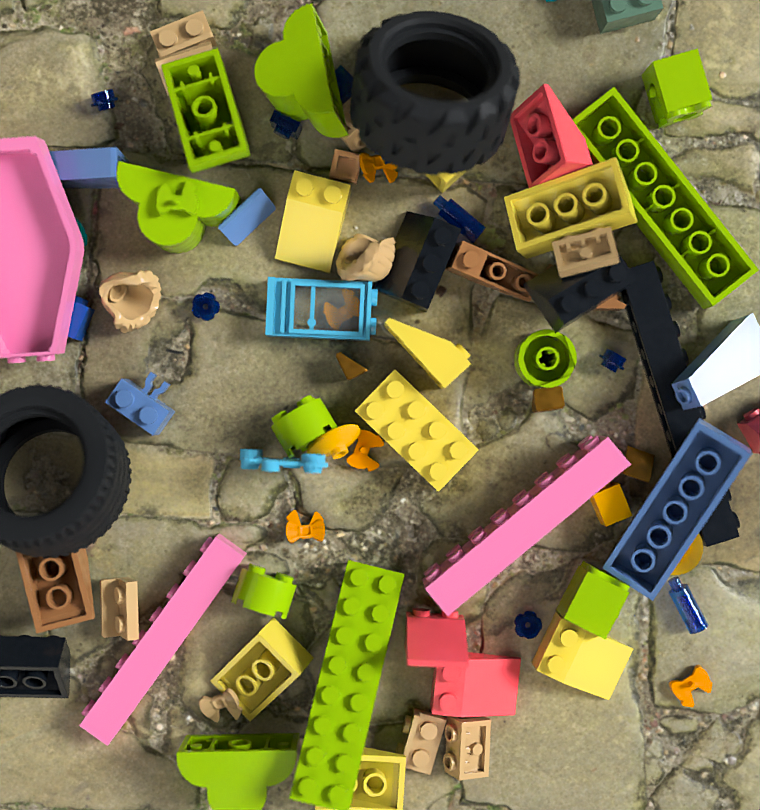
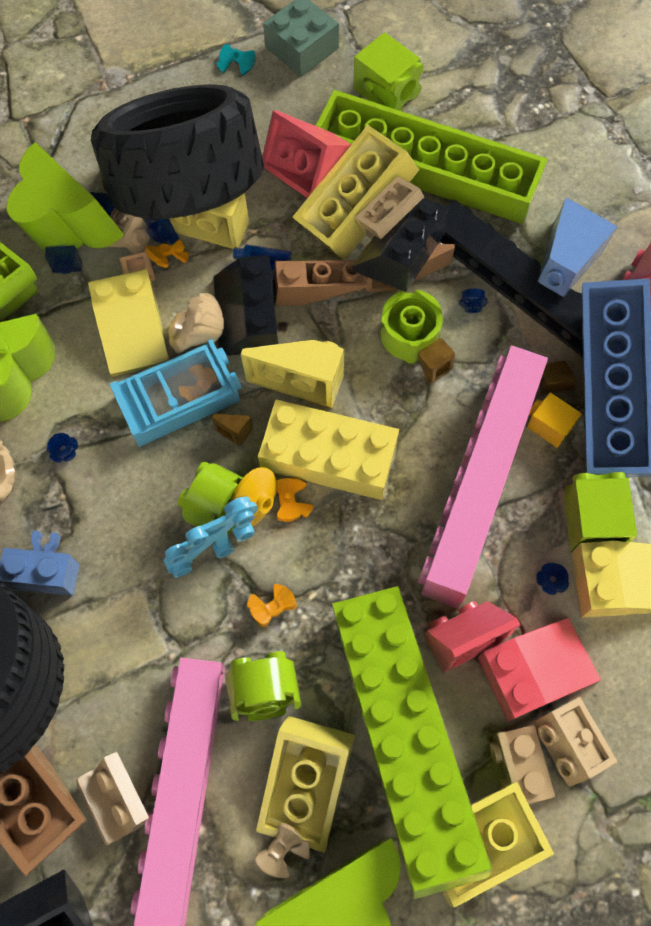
camera: 25 degrees left, 20 degrees down
(247, 217) = (64, 350): medium blue slope -> none

